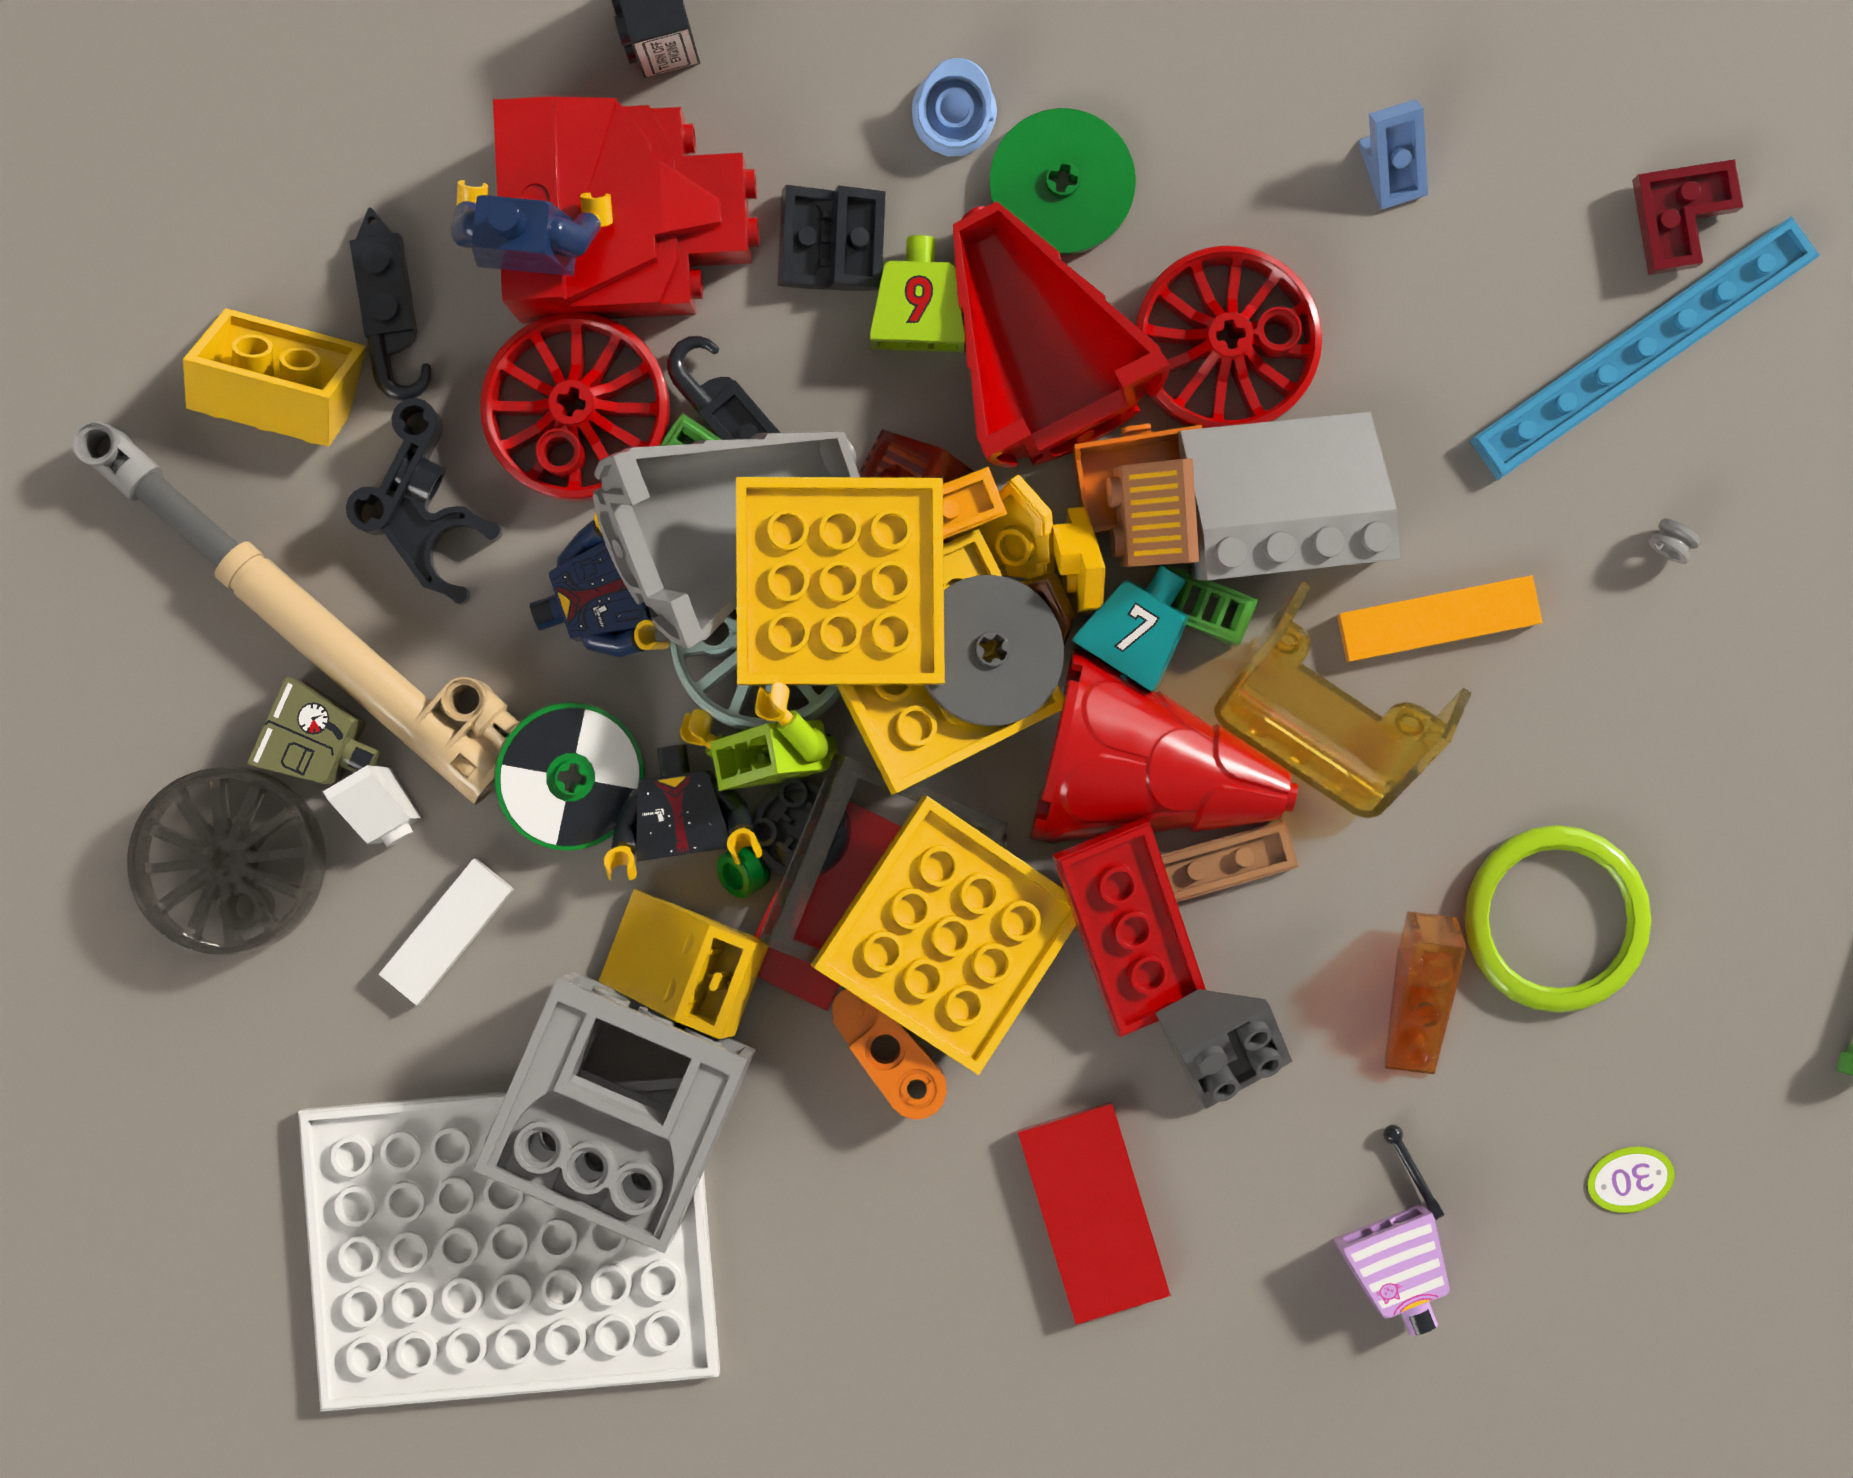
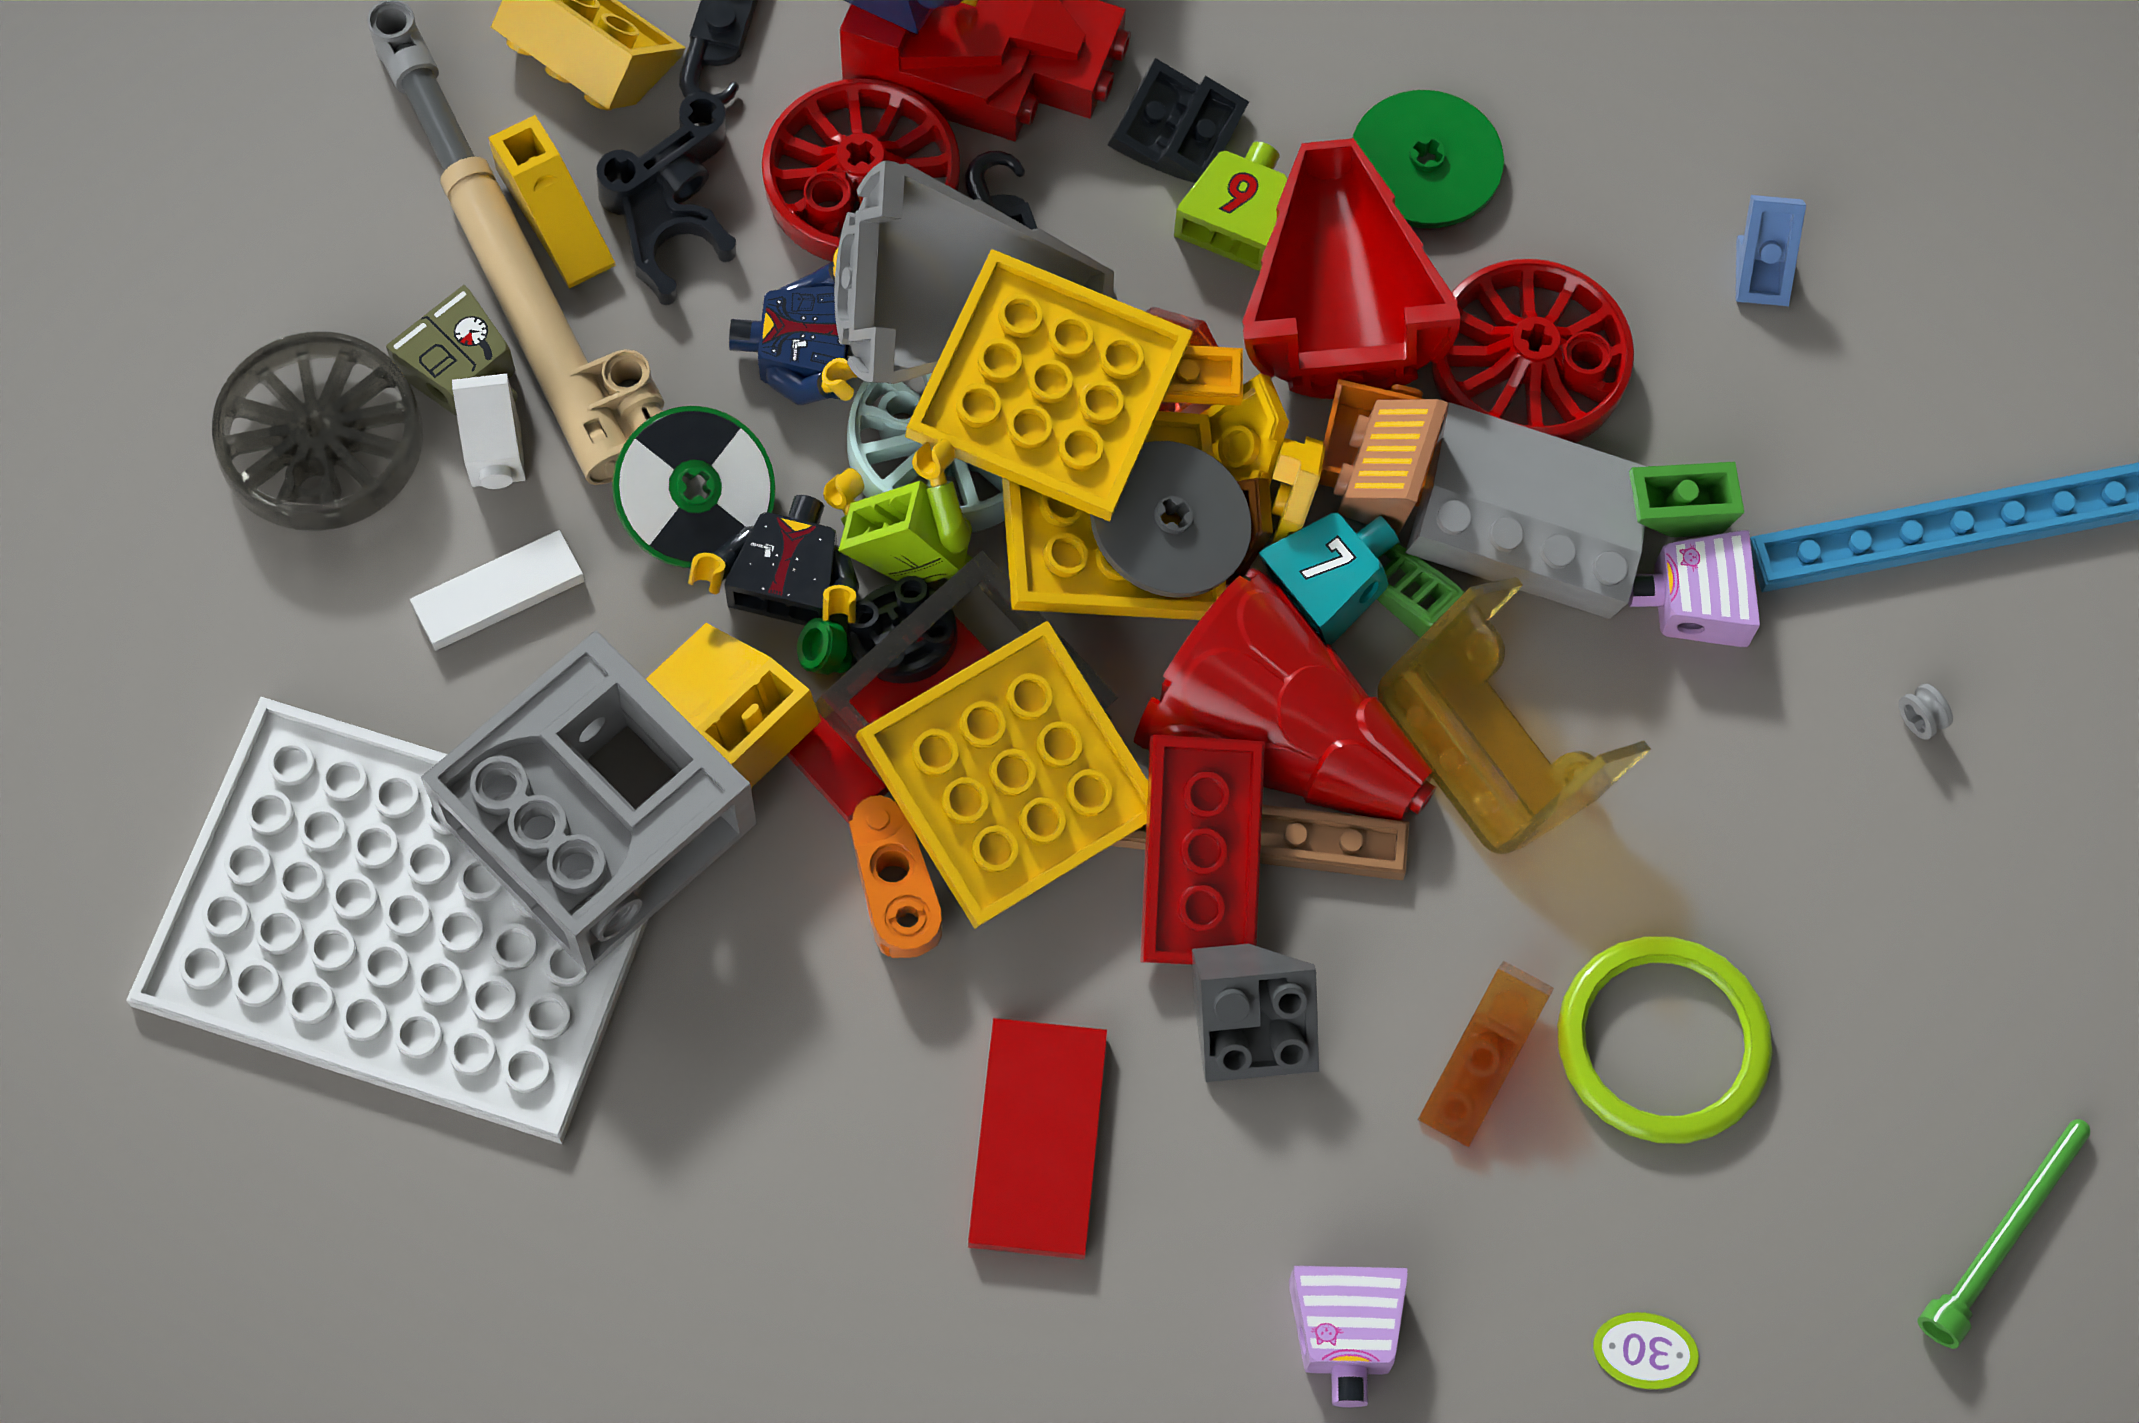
camera: 20 degrees right, 20 degrees down
(321, 558) = (550, 200): none -> yellow slope
(954, 108) = (1348, 55): light blue piece -> none
(1393, 1135) = (1399, 1193): black hinge -> none
(1415, 434) = (1687, 498): none -> bright green slope
(1439, 618) = (1650, 694): light orange tile -> none
(1454, 506) = (1703, 590): none -> lavender torso
(1672, 202) = (2042, 398): dark red plate -> none

